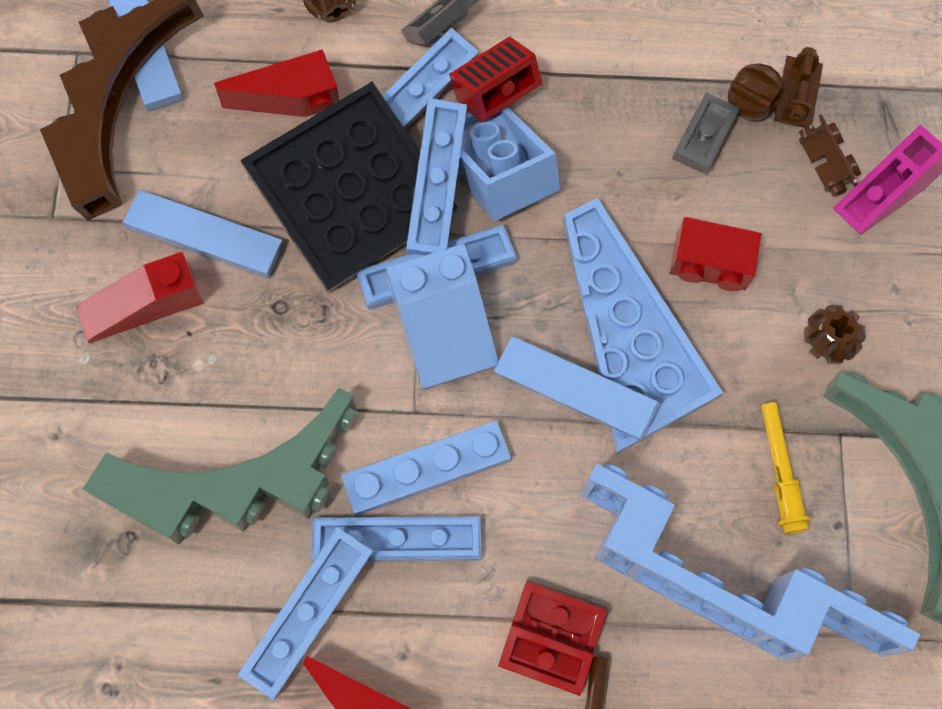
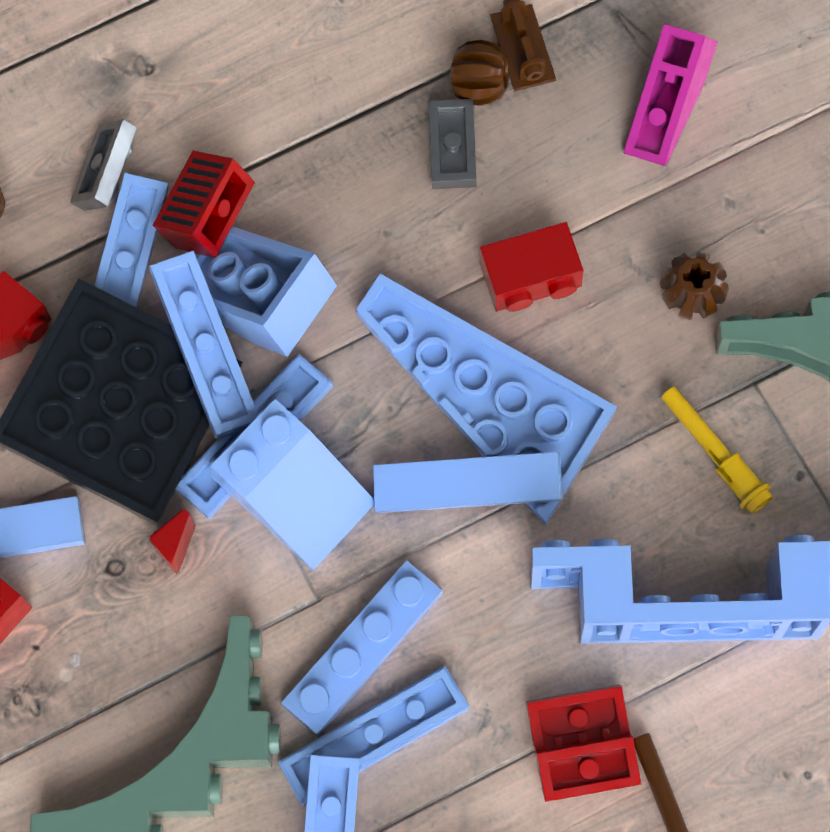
camera: 20 degrees left, 0 degrees up
(333, 309) = (173, 539): none -> red slope
(825, 142) = (607, 110): reddish brown hinge -> none

